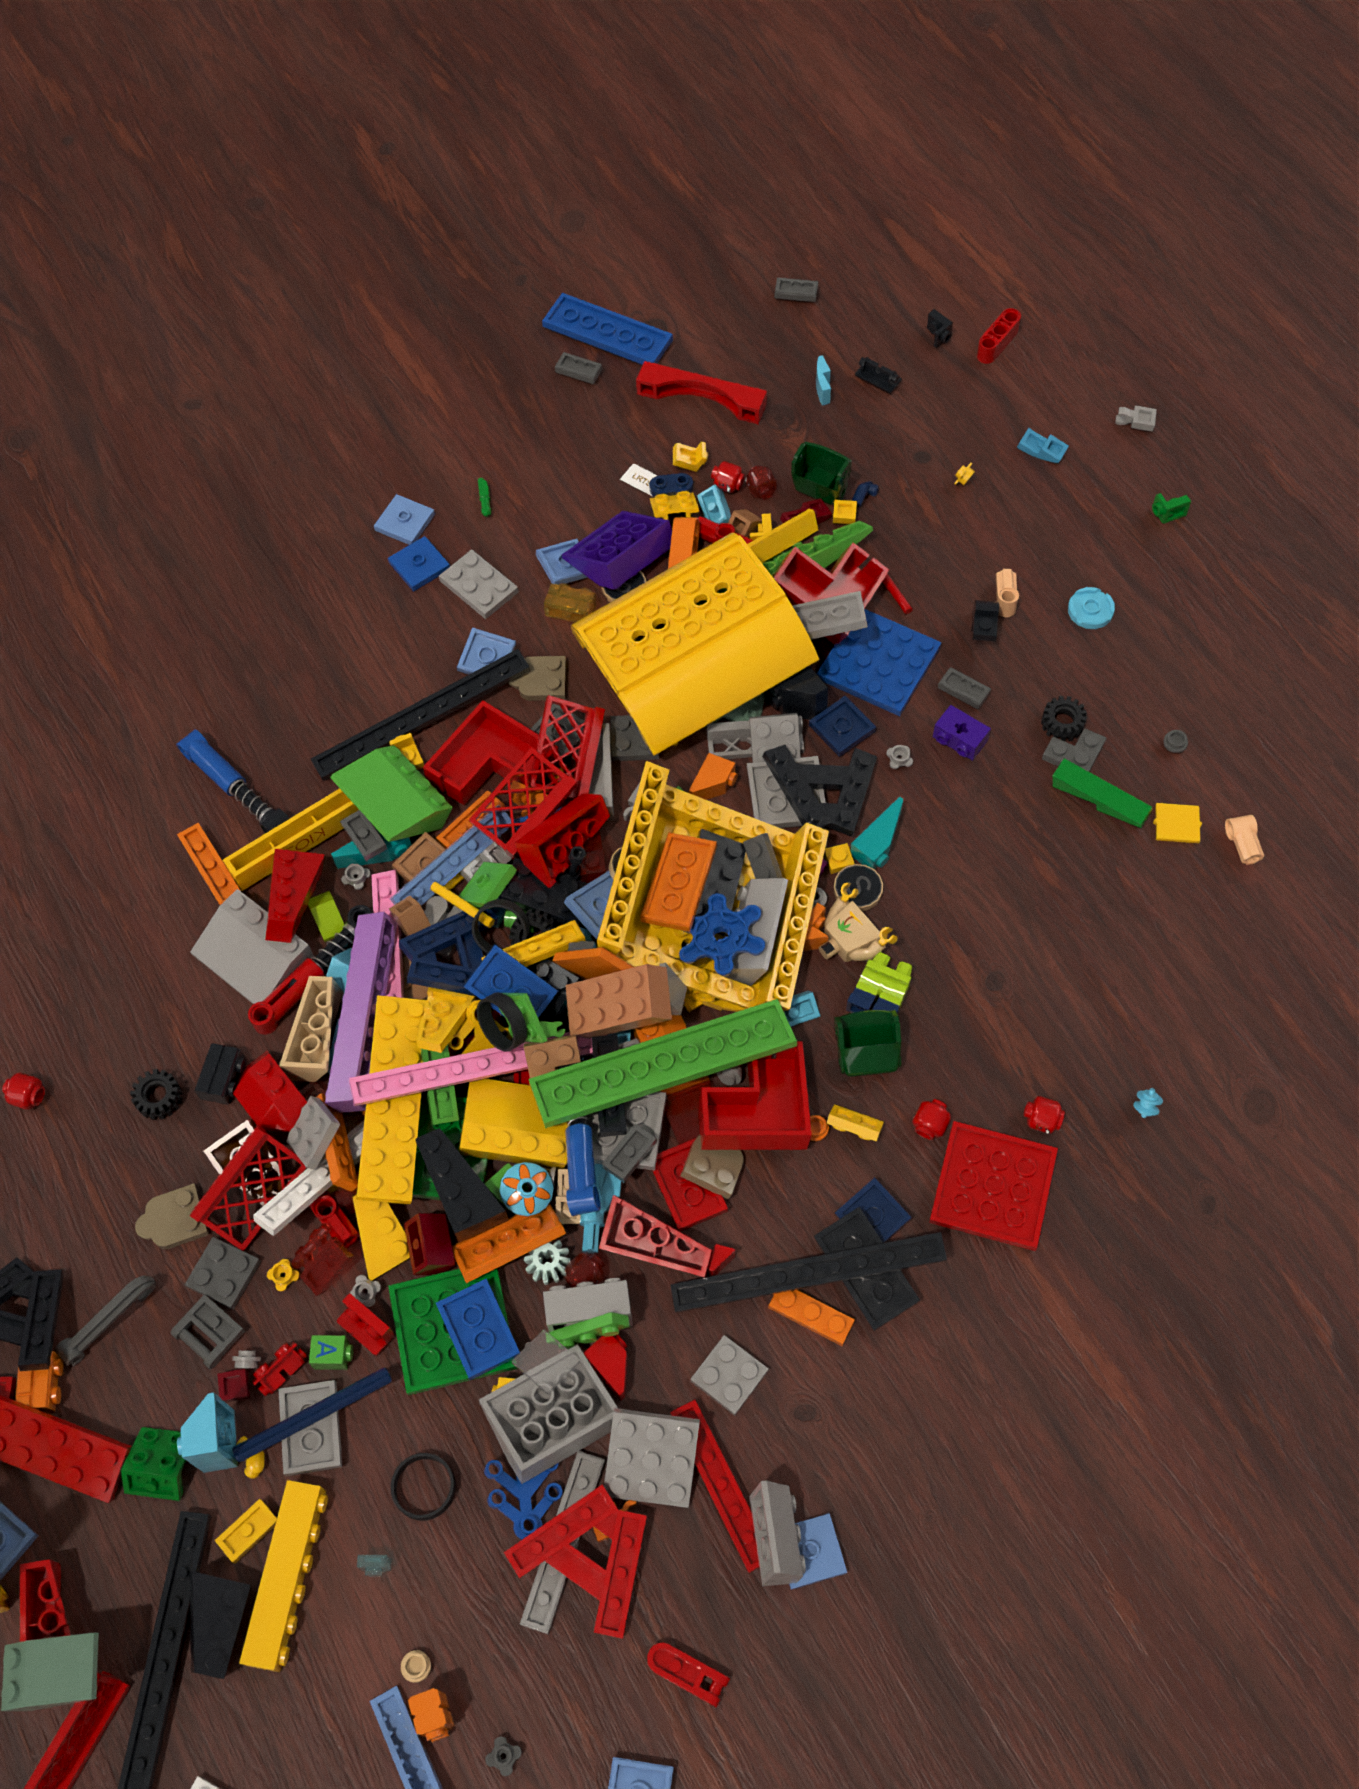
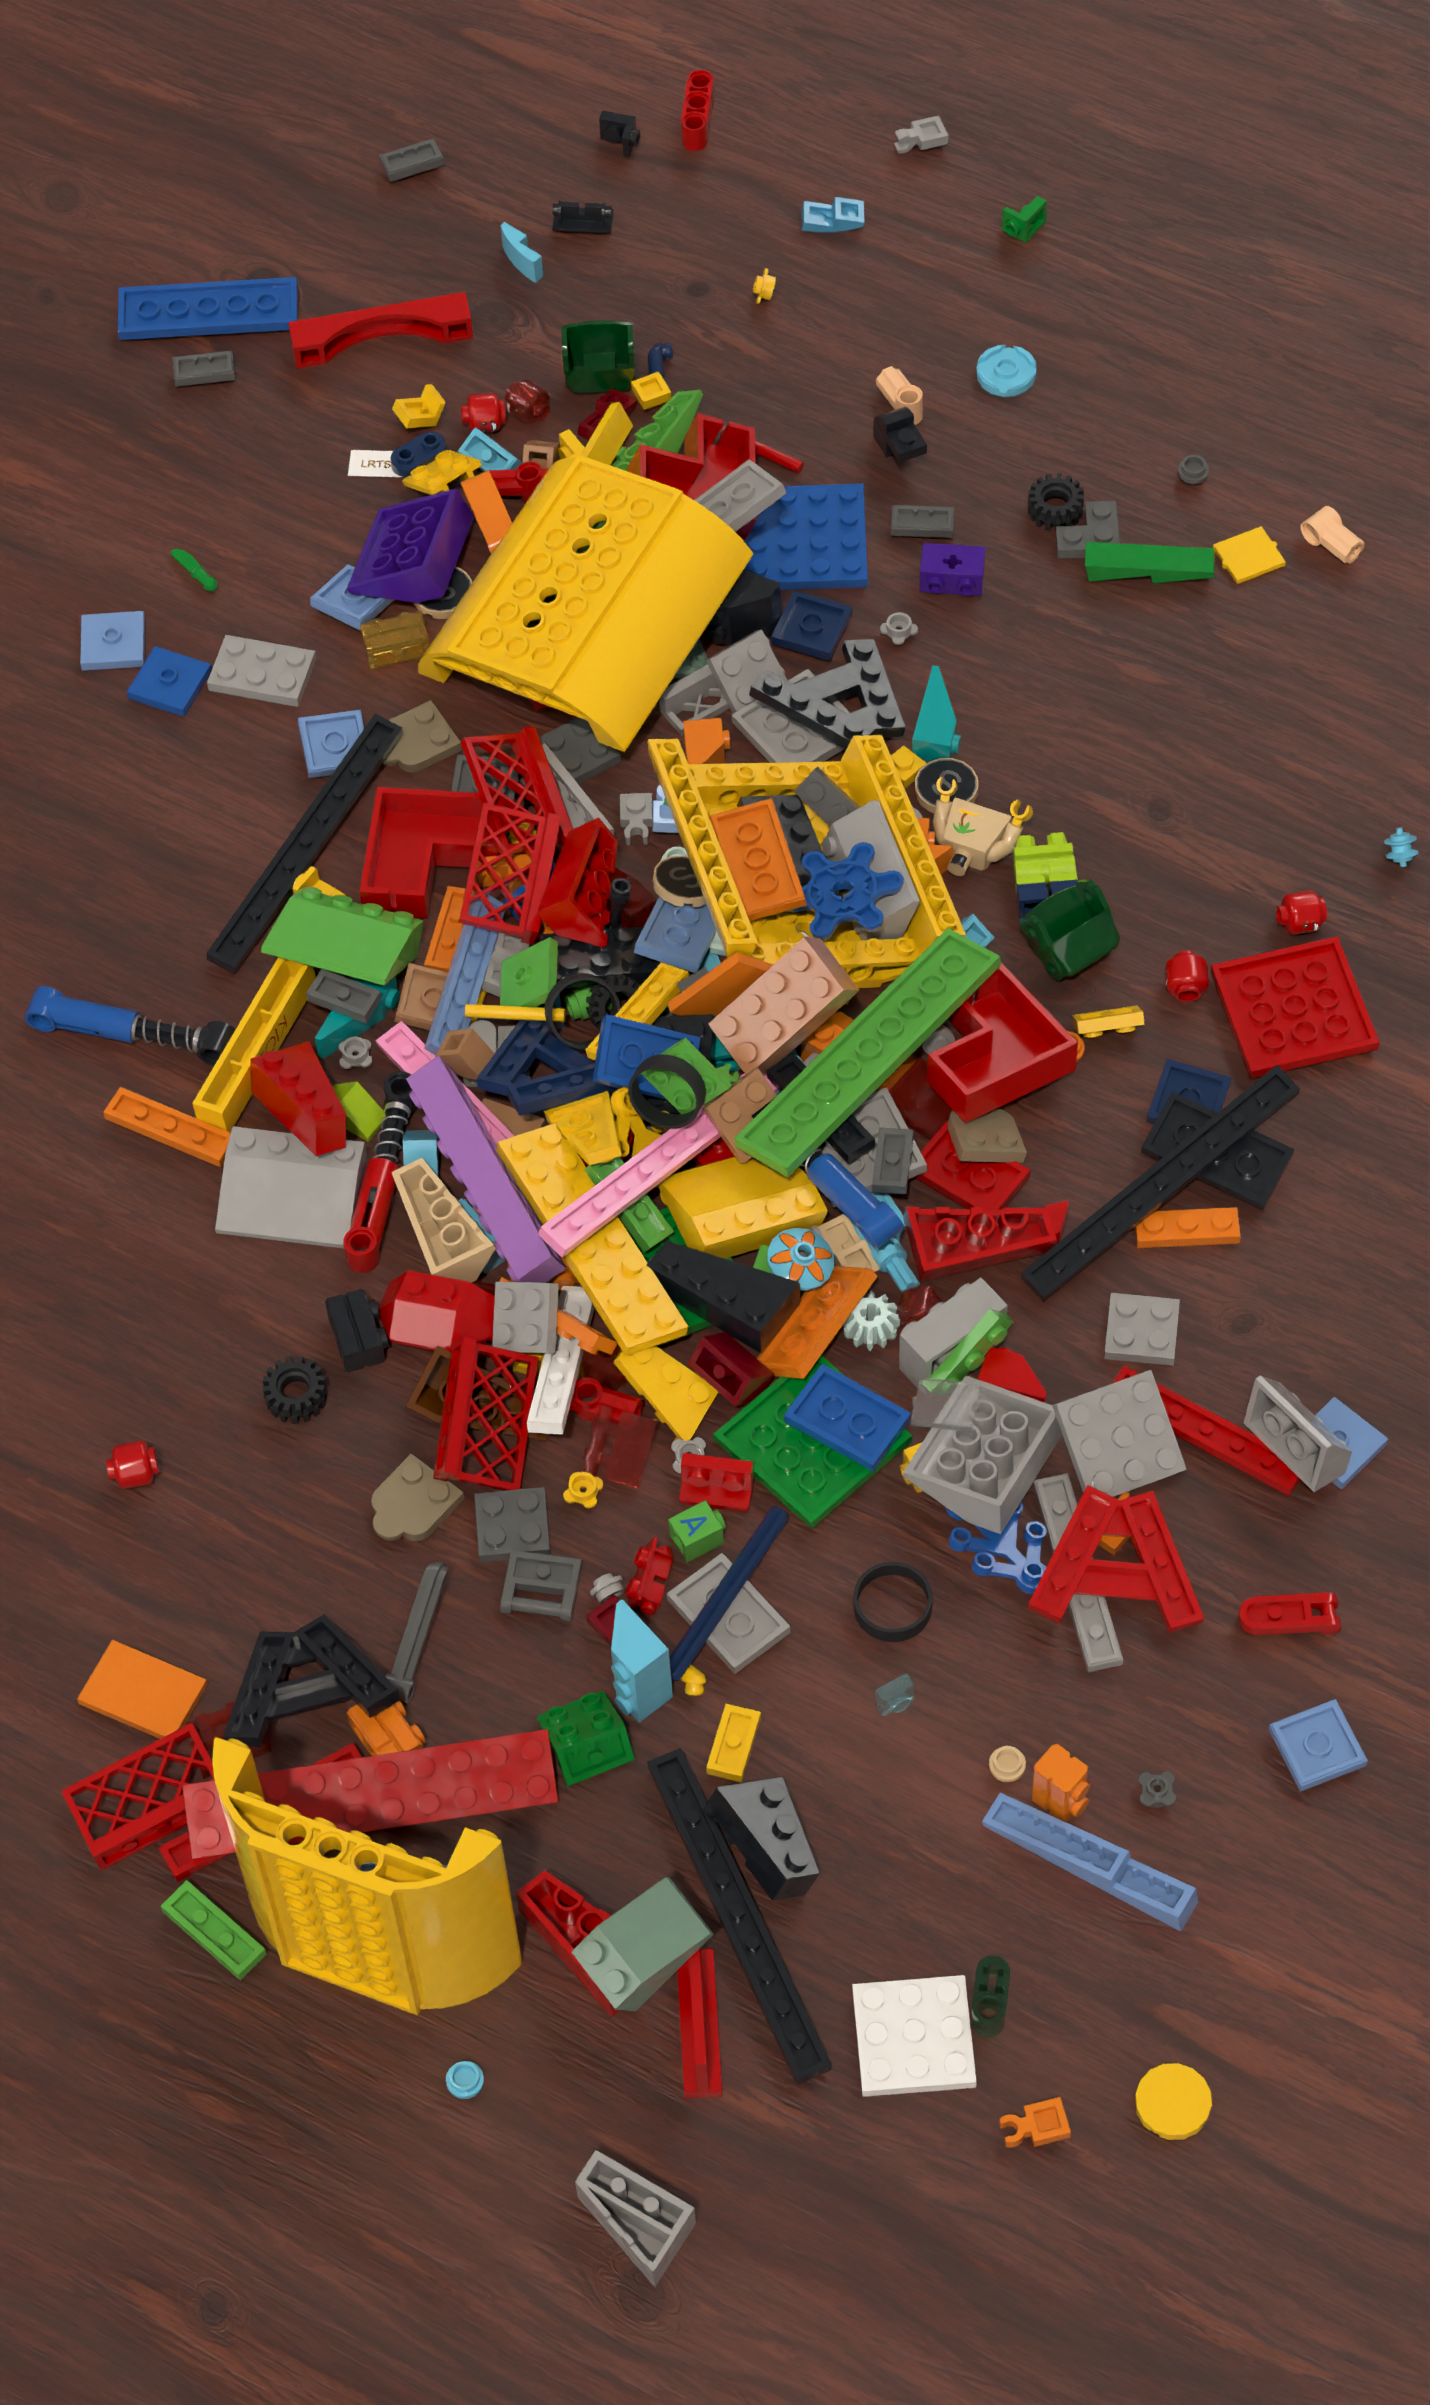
camera: 30 degrees left, 5 degrees down
(283, 1577) = (806, 1759): yellow brick -> none

